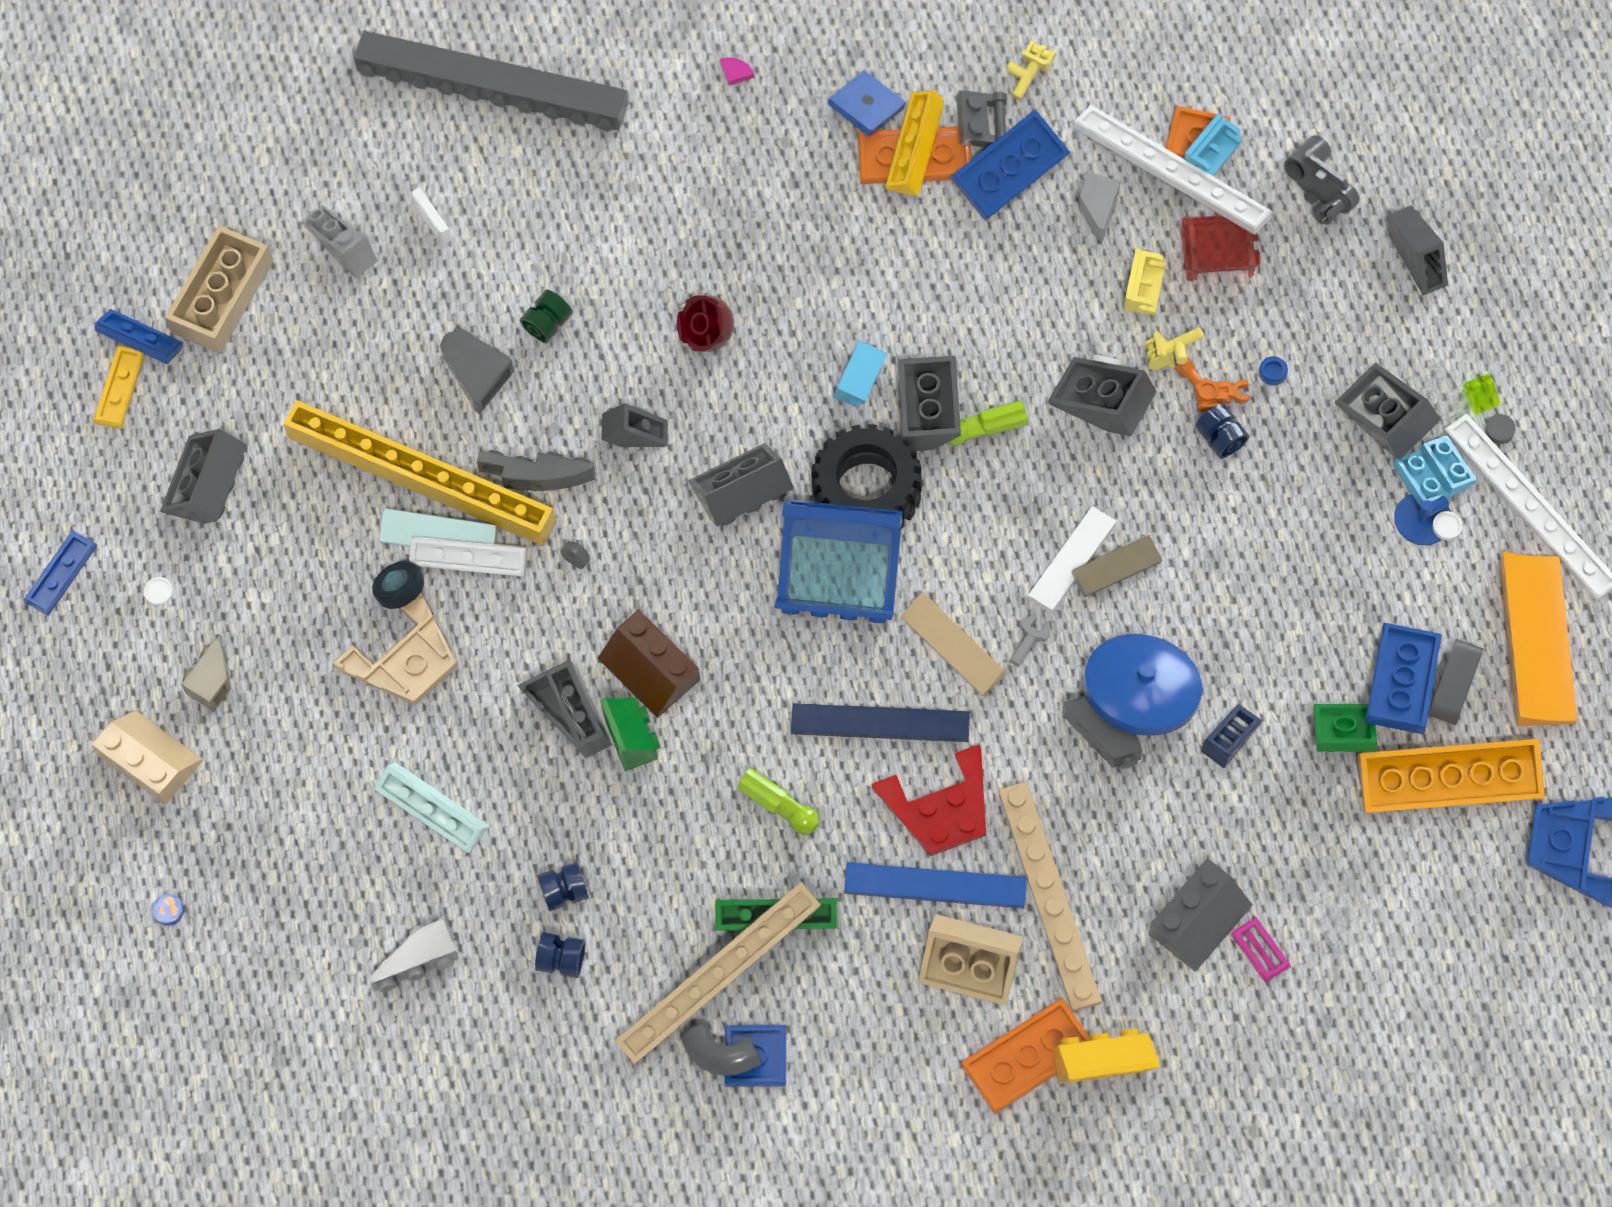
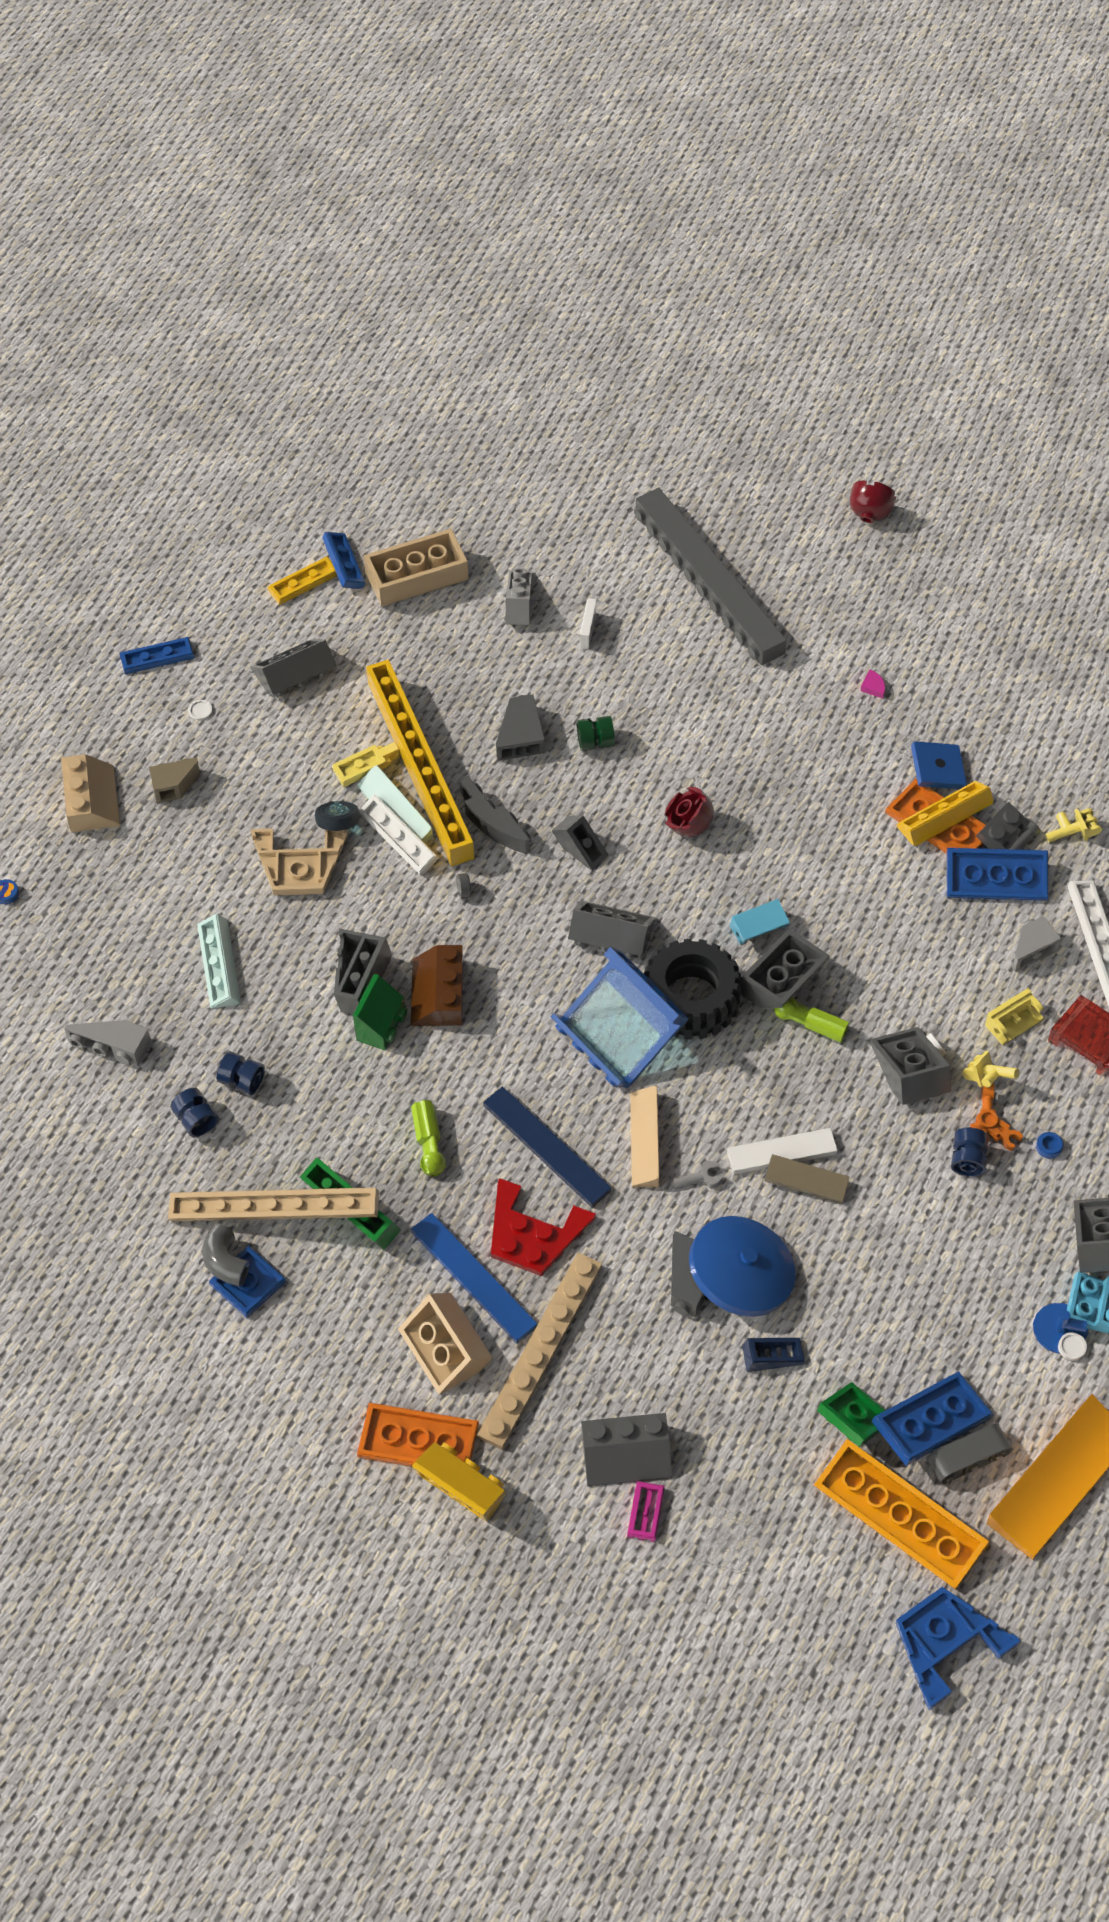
camera: 40 degrees right, 10 degrees down
(367, 516) = (358, 765): none -> light yellow hinge

